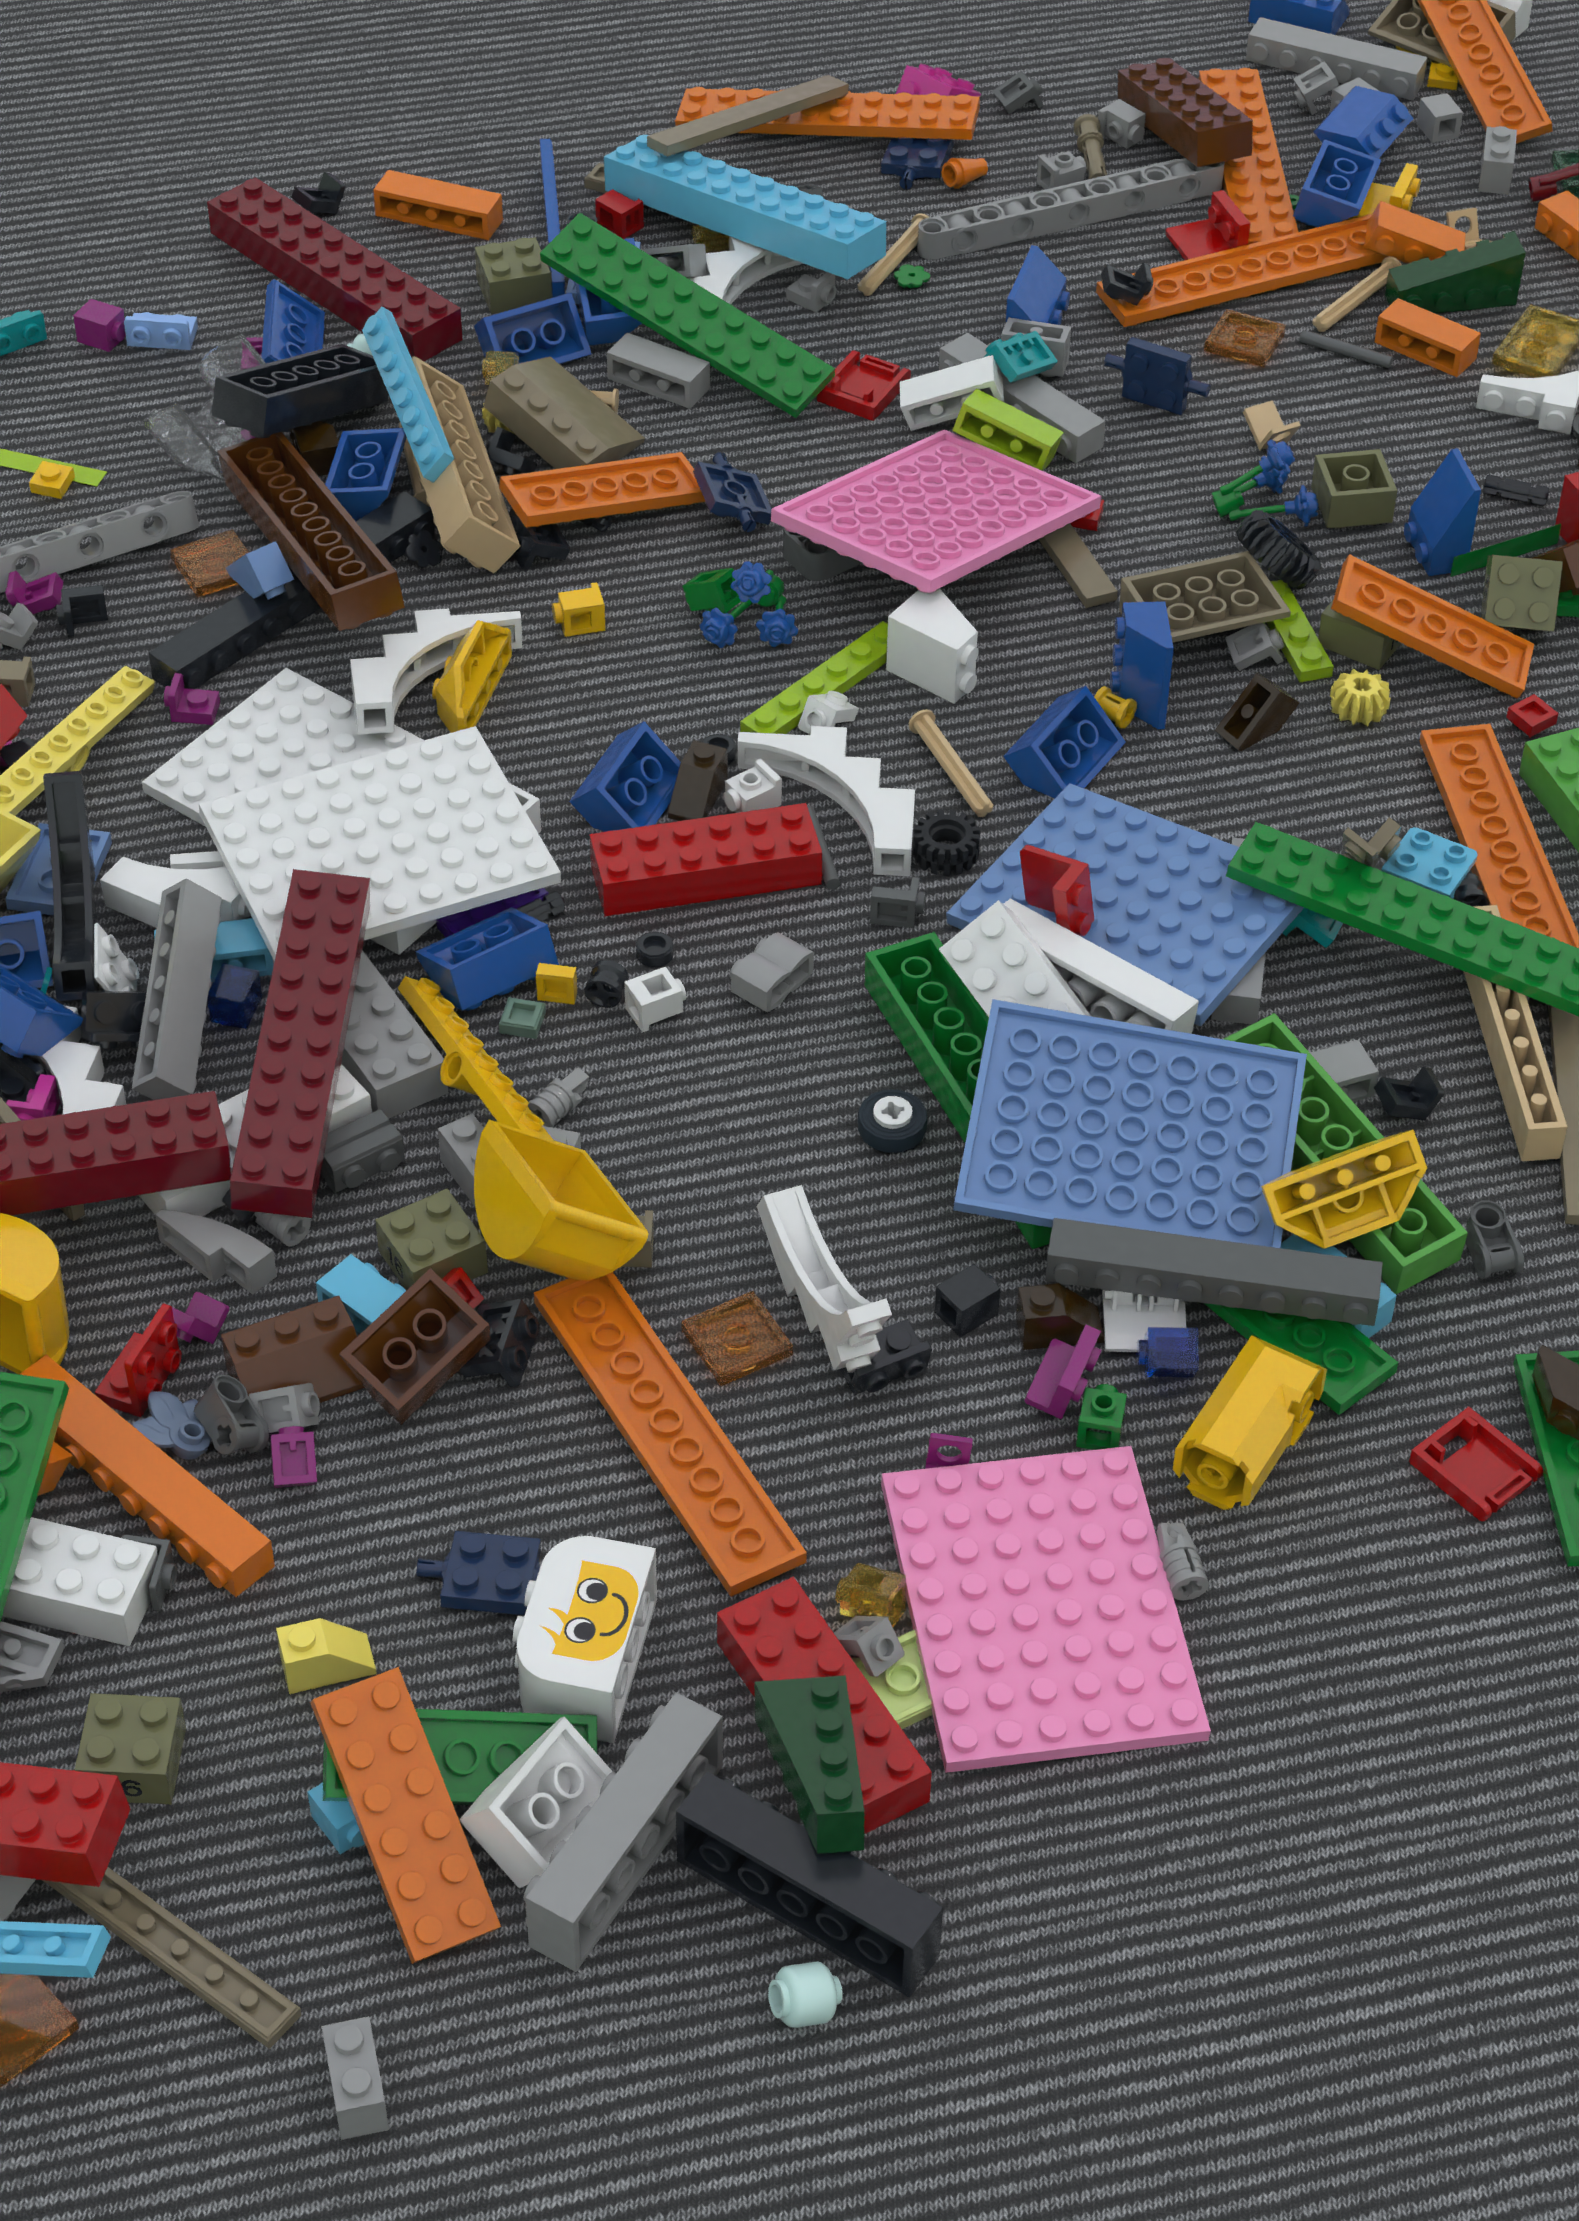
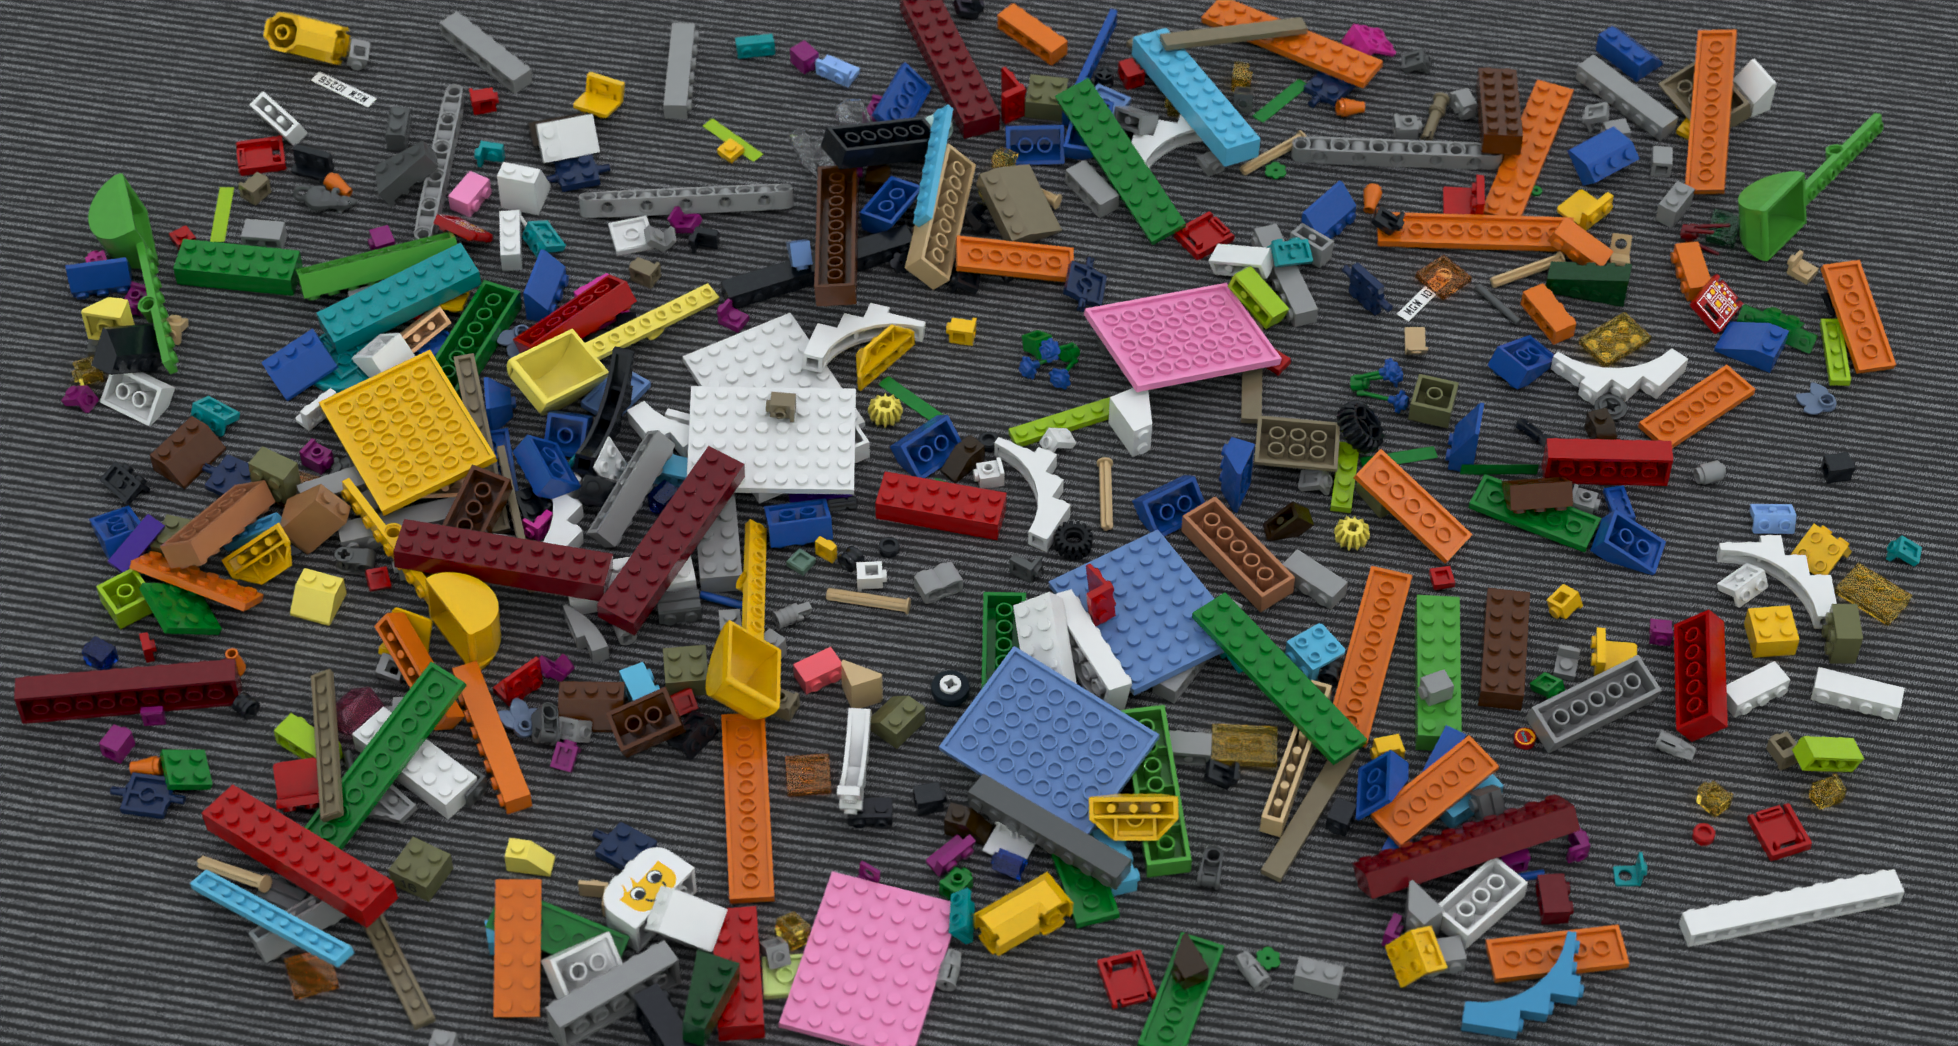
camera: 25 degrees right, 5 degrees up
(205, 561) = (787, 229): clear orange tile -> none
(376, 780) = (782, 405): none -> dark tan brick
(437, 1117) = (721, 599): none -> blue bar
(462, 280) = (1011, 97): none -> red bracket
(480, 1661) = (593, 889): none -> tan bracket
(527, 755) = (885, 410): none -> light yellow gear
(551, 731) = (909, 398): none -> green sticker
(658, 1168) = (818, 670): none -> coral brick
(672, 1035) = (869, 600): none -> tan axle
(690, 1642) = (686, 919): none -> white slope
(746, 1162) = (861, 685): none -> tan slope
(784, 169) = (1241, 75): none -> clear yellow brick
(828, 869) = (1007, 518): dark grey bar -> none
(841, 1193) = (898, 719): none -> olive slope
(861, 184) = (1280, 101): none -> green sticker
(1074, 266) = (1372, 195): none -> orange cone
(1115, 707) = (1212, 490): yellow bush -> none
(1149, 1459) = (961, 916): none -> teal bracket
(1214, 774) = (1238, 554): none -> nougat brick
(1229, 383) = (1416, 304): none -> white sticker
(1325, 593) = (1408, 455): none -> green sticker
(1335, 185) = (1559, 190): blue slope -> none
(1349, 777) = (1316, 580): none -> light grey brick
(1381, 845) = (1279, 628): dark tan bracket -> none
(1415, 1039) = (1244, 744): none -> clear yellow plate
(1435, 408) = (1521, 361): none -> blue slope
(1521, 592) = (1477, 502): olive brick -> none

